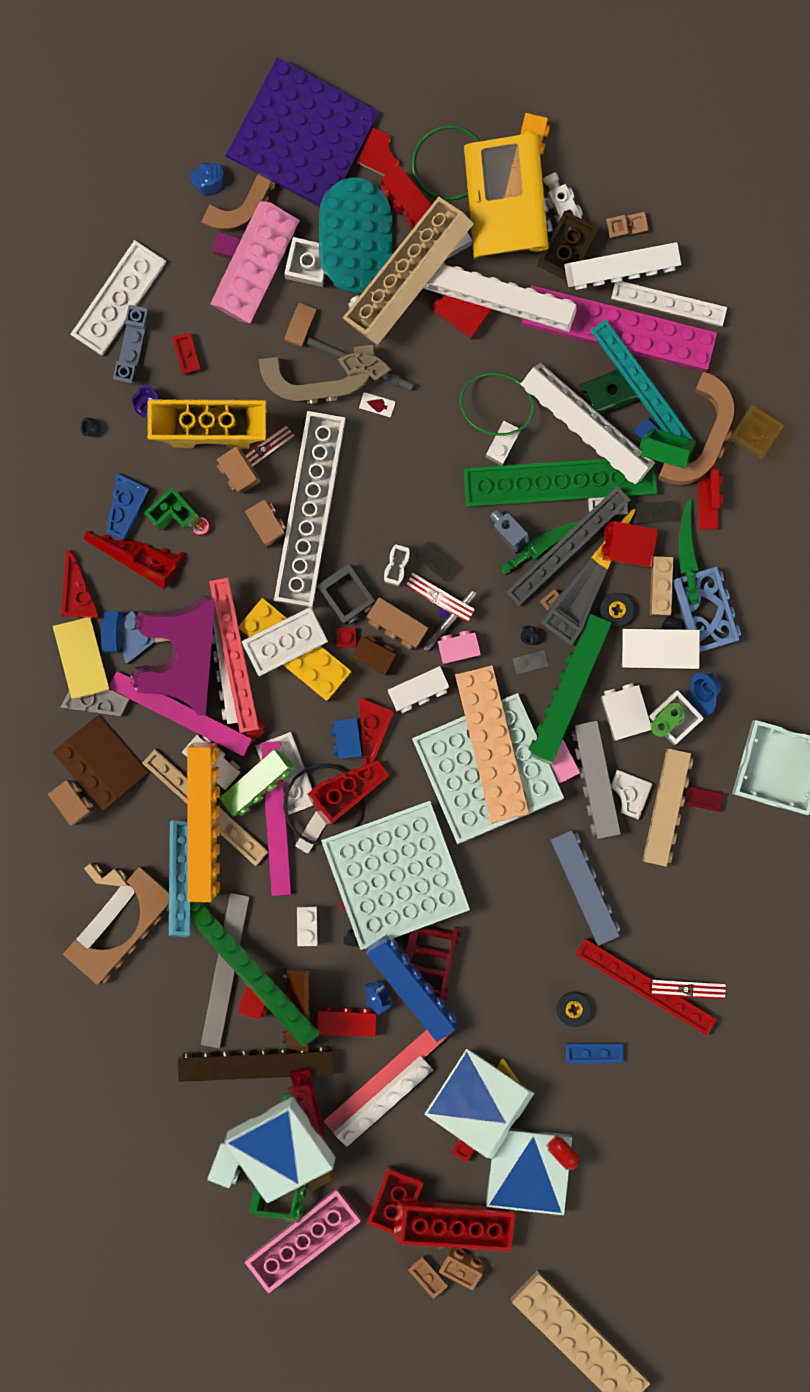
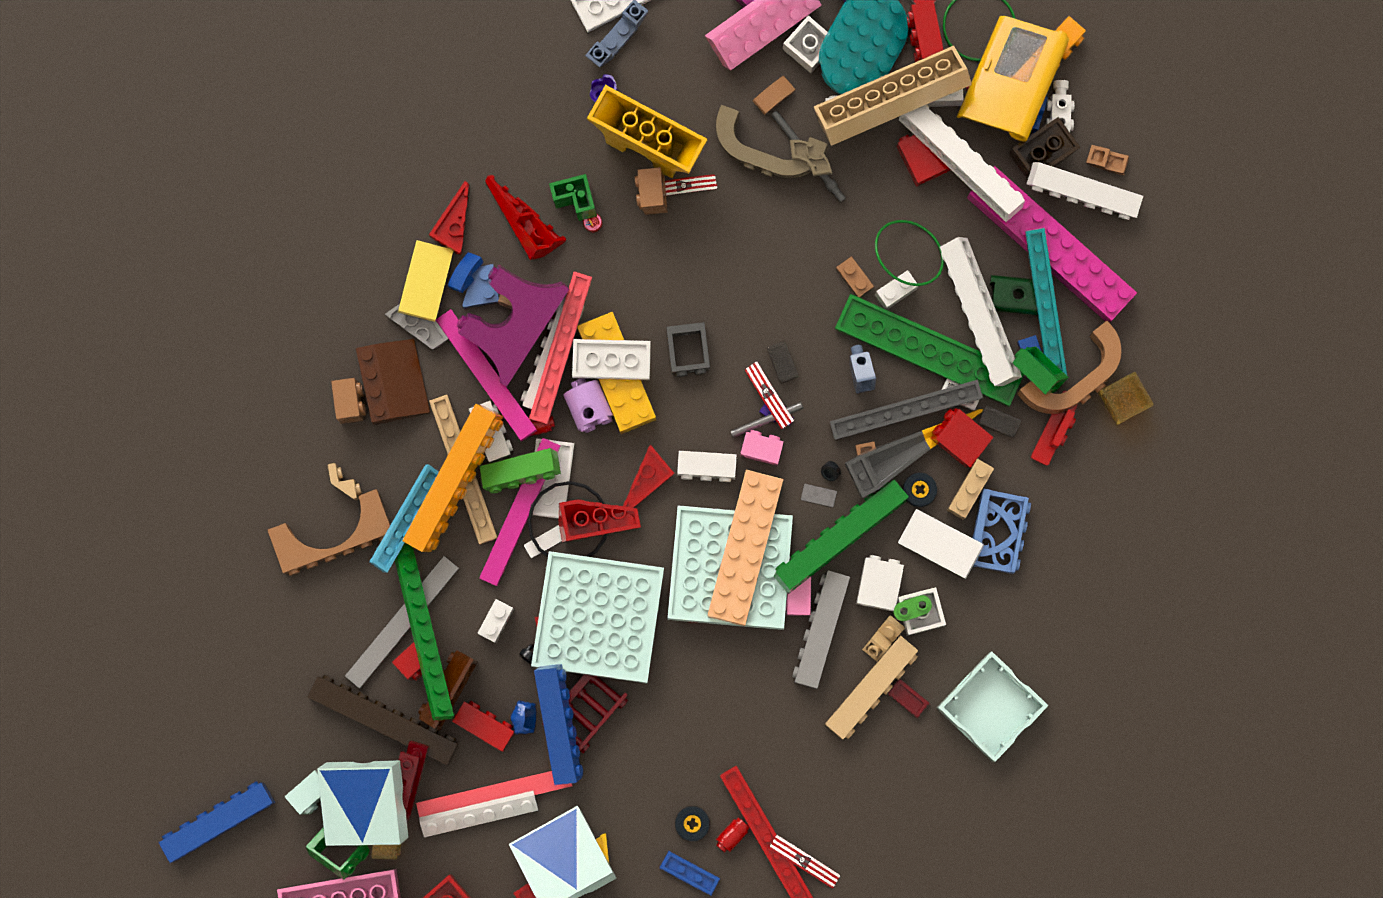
camera: 30 degrees right, 5 degrees down
(90, 427) = (543, 87): black tile -> none
(105, 916) = (324, 517): white sticker -> none
(126, 505) = (538, 170): blue wing -> none
(159, 1231) = (217, 822): none -> blue brick
(186, 353) = (661, 68): red plate -> none
(265, 523) = (650, 249): medium nougat brick -> none
(279, 688) = (585, 398): none -> lavender cylinder
(309, 509) = (695, 258): white brick -> none
(346, 637) = (667, 387): red plate -> none
(347, 738) = (620, 475): blue brick -> none
(373, 655) = (683, 415): reddish brown brick -> none
(377, 404) = (804, 199): white sticker -> none
(395, 570) = (741, 350): white brick -> none
(396, 624) = (718, 397): medium nougat brick -> none
(459, 451) = (854, 277): none -> medium nougat plate
(538, 546) = (878, 397): green sword -> none
(584, 887) = (760, 719): sand blue brick -> none
(614, 1000) = (732, 835): none -> red head
(632, 793) = (847, 659): white tile -> none
(654, 758) = (883, 638): none -> tan slope
(669, 303) = (1108, 246): white plate -> none
(671, 623) = (962, 527): black tile -> none
(686, 553) = (1007, 473): green sword -> none
(704, 693) = (959, 603): blue piece -> none

